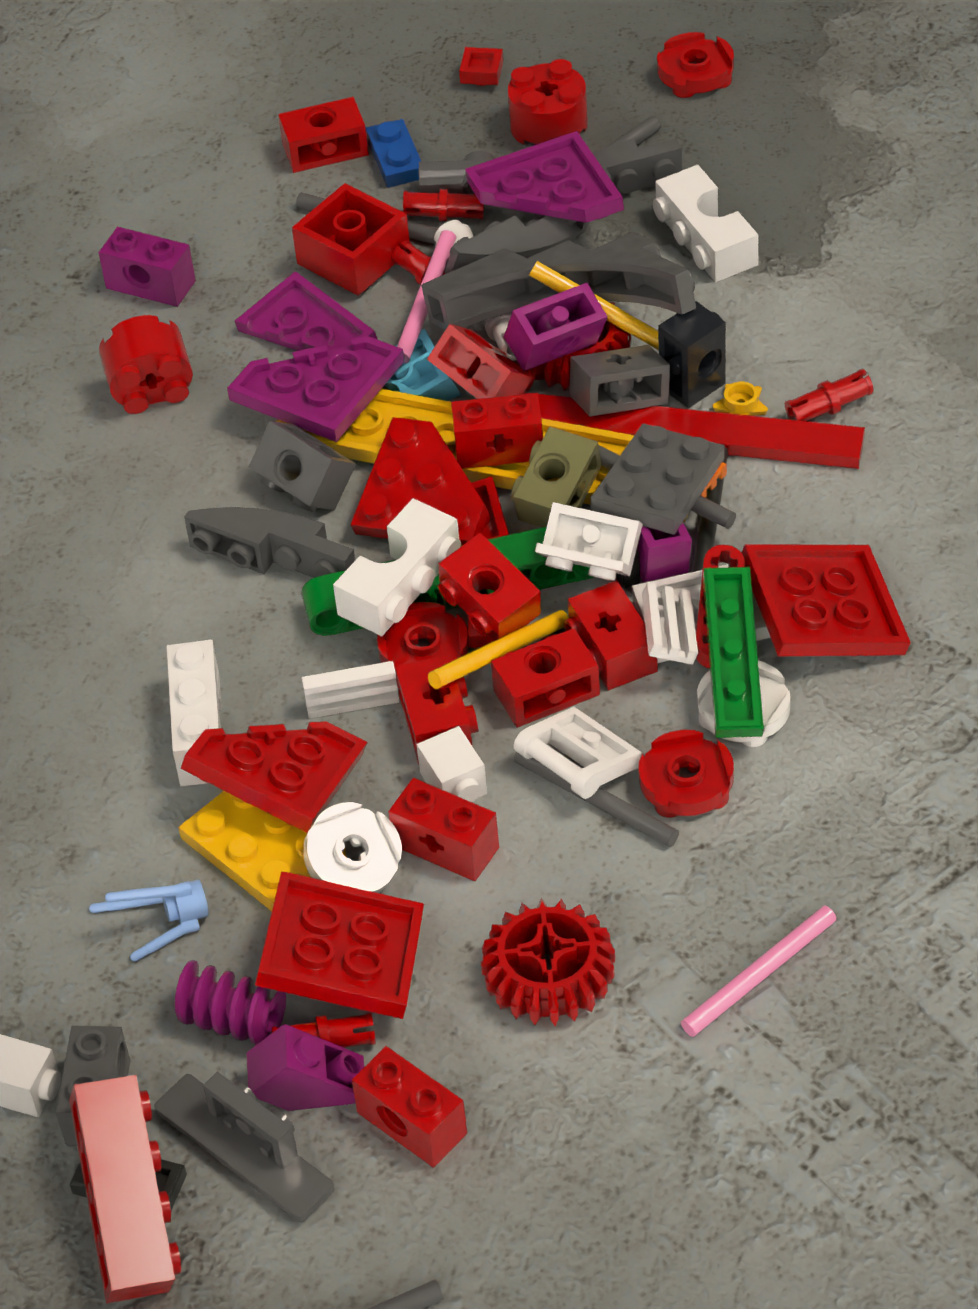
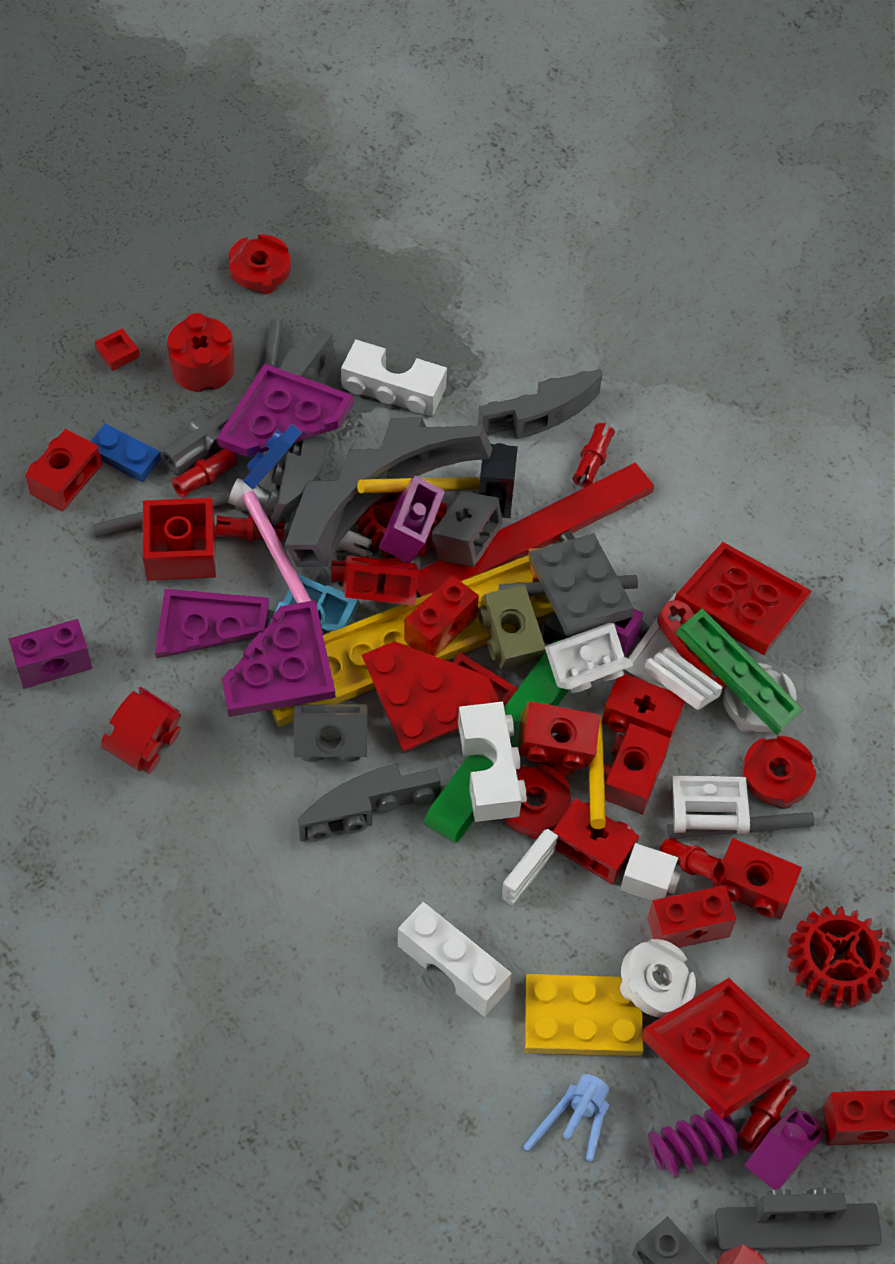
camera: 50 degrees left, 10 degrees up
(278, 768) = (561, 958): red plate -> none
(498, 204) = (278, 446): none -> blue plate
(499, 779) = (695, 860): none -> red pin
(548, 843) = (774, 872): none -> red brick
(741, 392) = (537, 484): yellow plate -> none
(831, 331) = (553, 404): none -> dark grey slope

